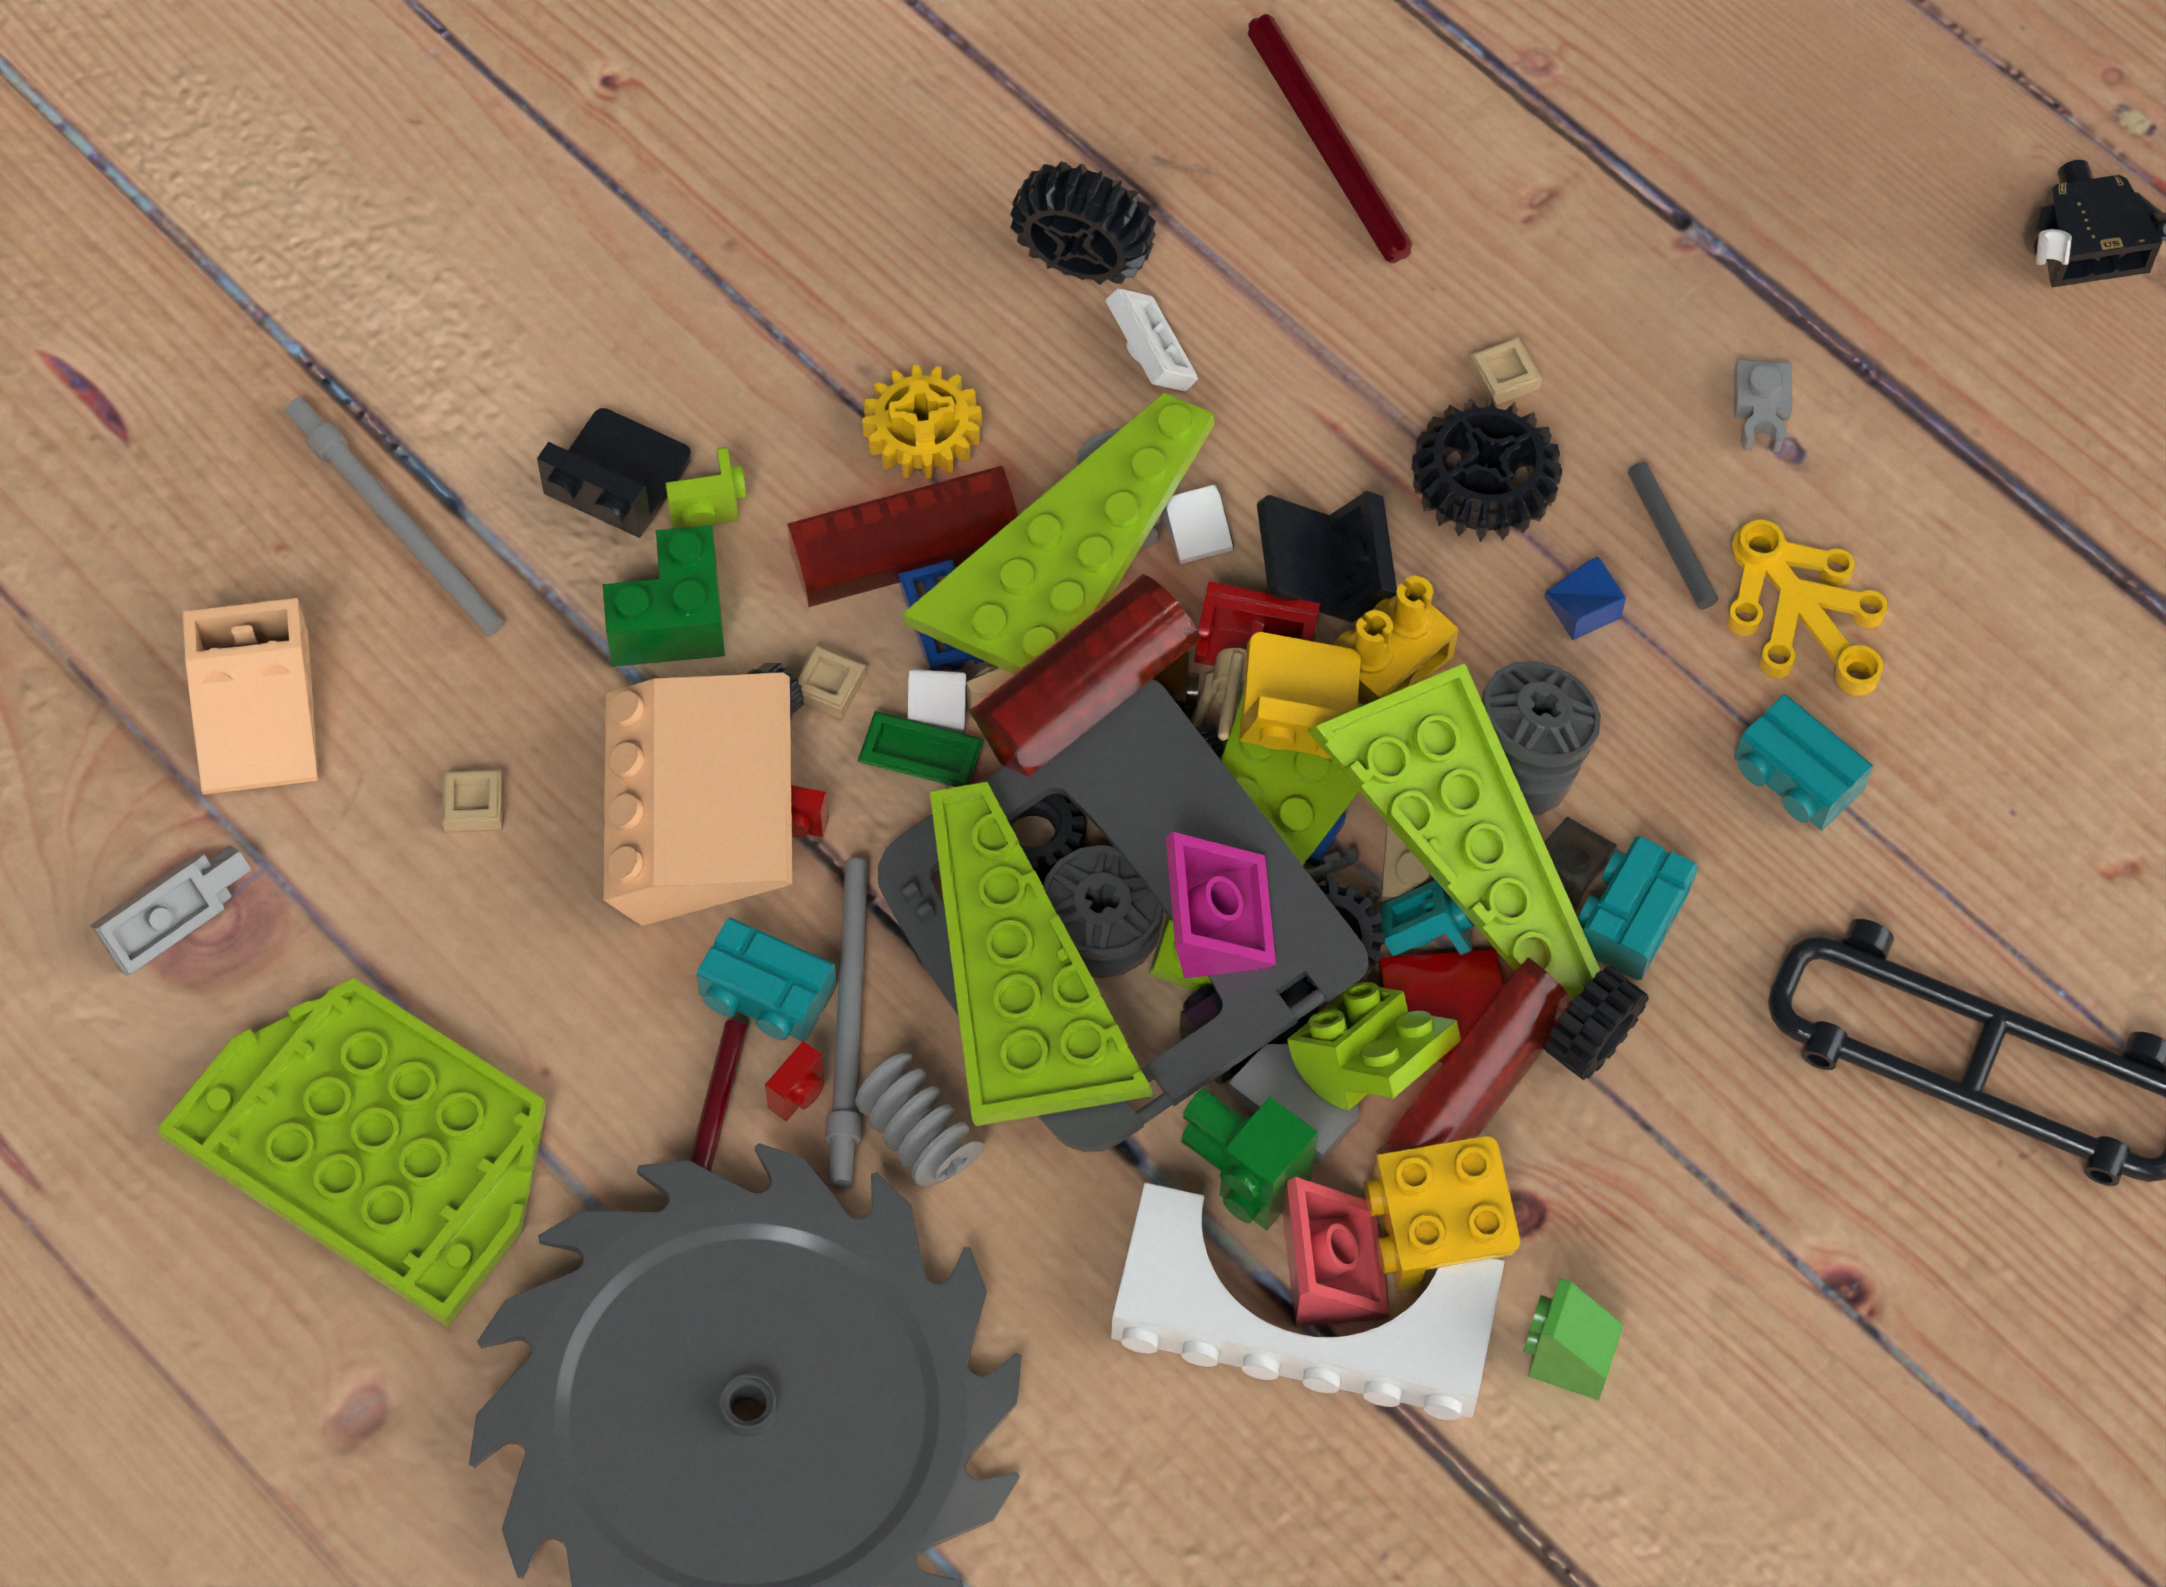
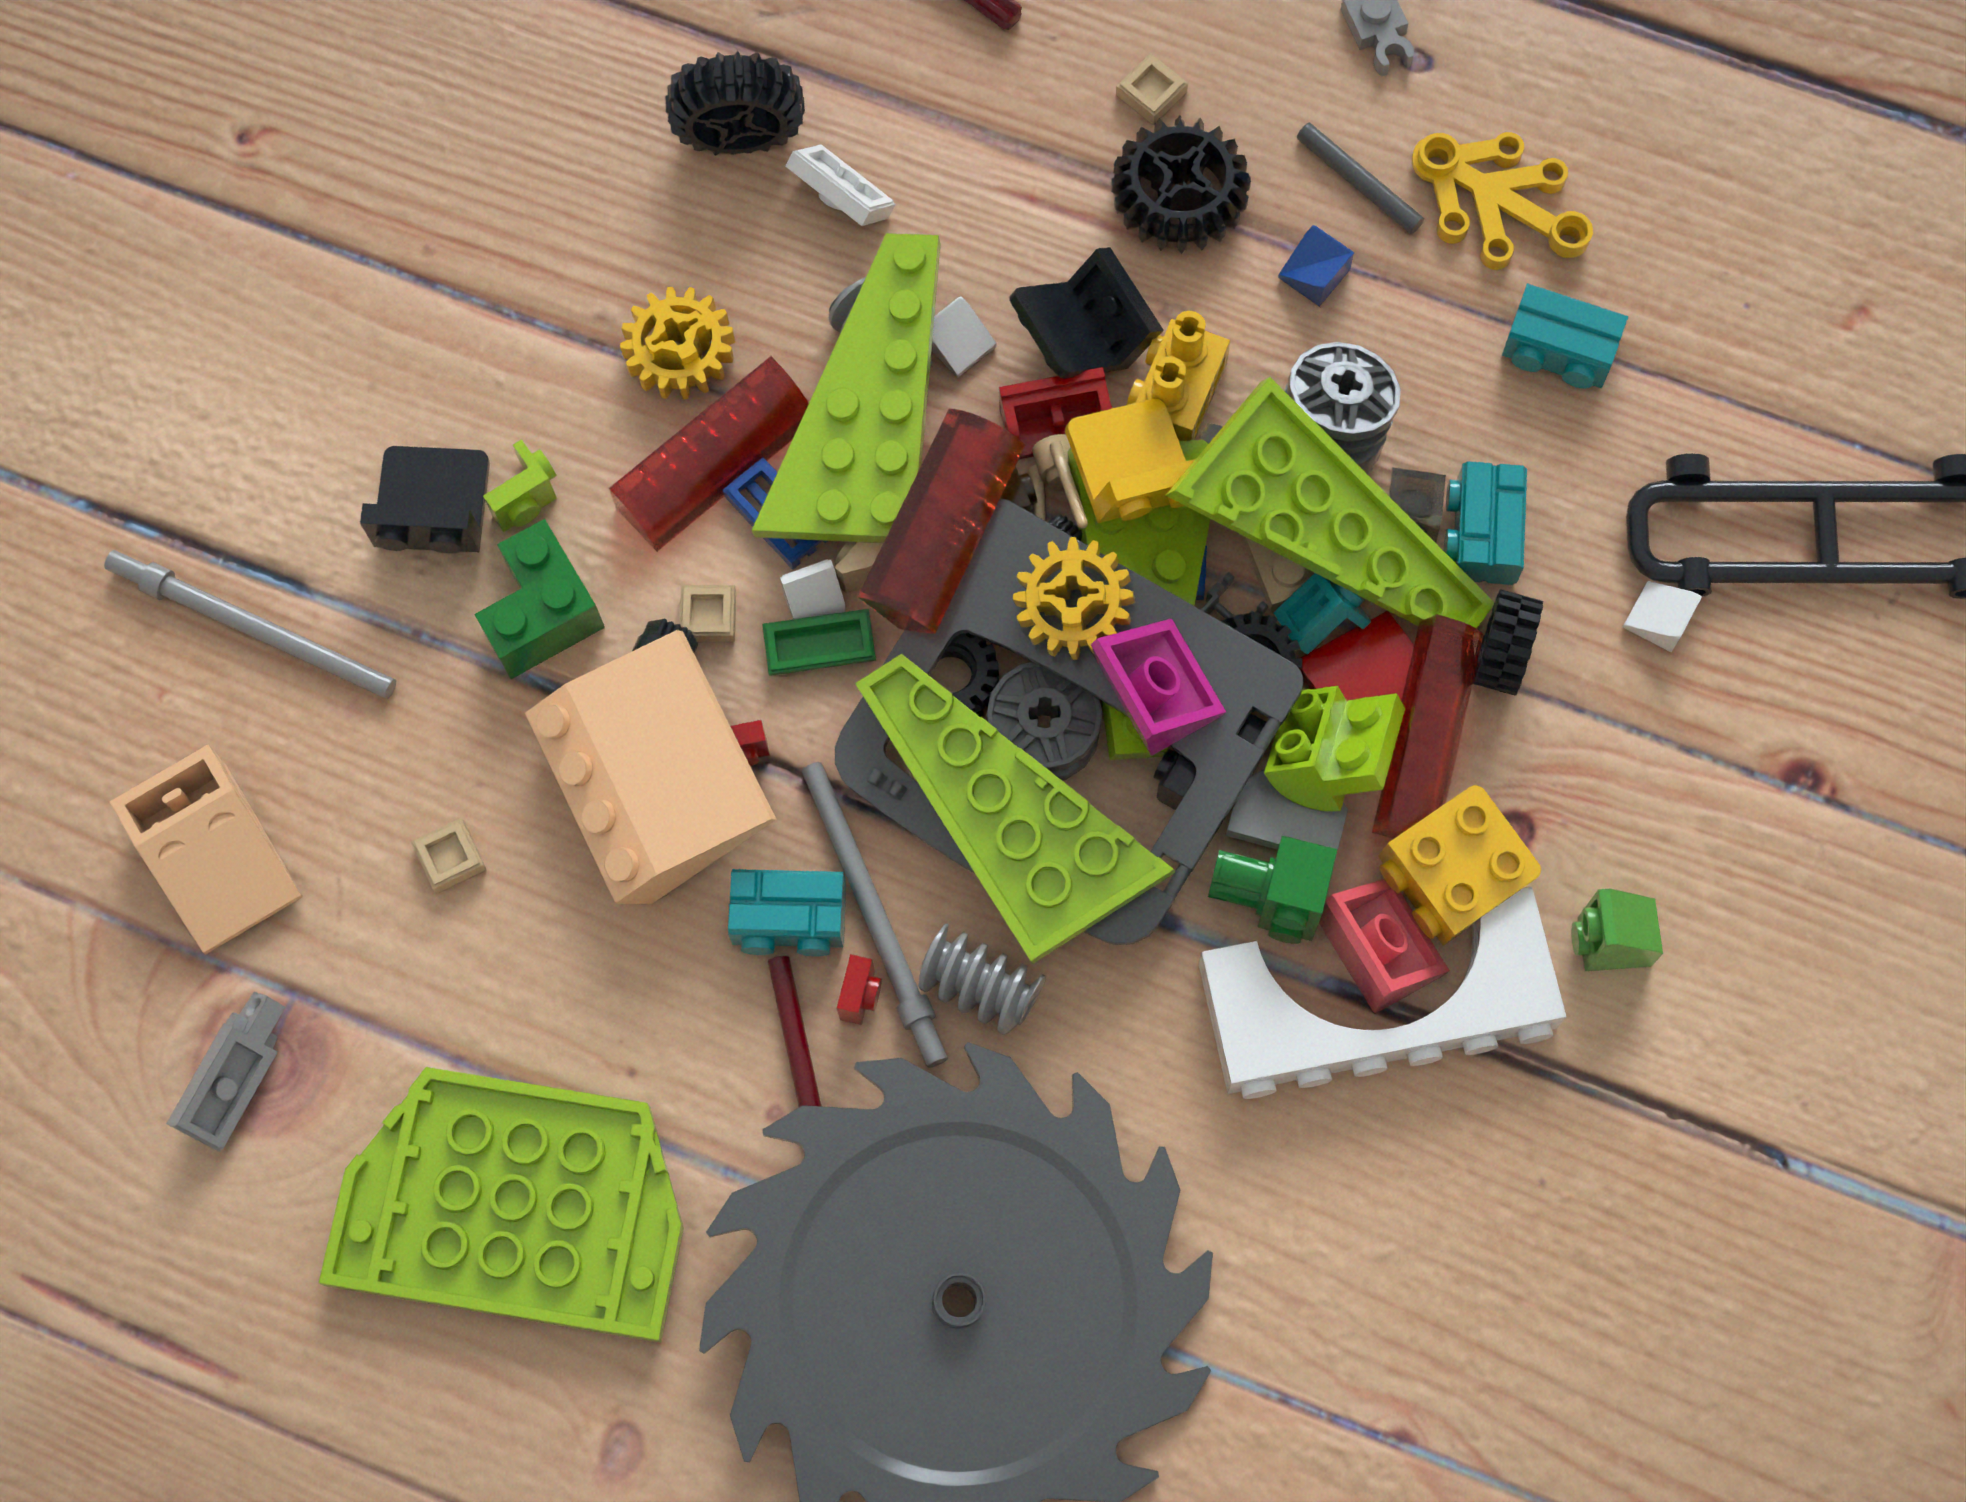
camera: 20 degrees left, 10 degrees up
(1165, 775) = (1051, 597): none -> yellow gear
(1775, 1068) = (1662, 614): none -> white slope

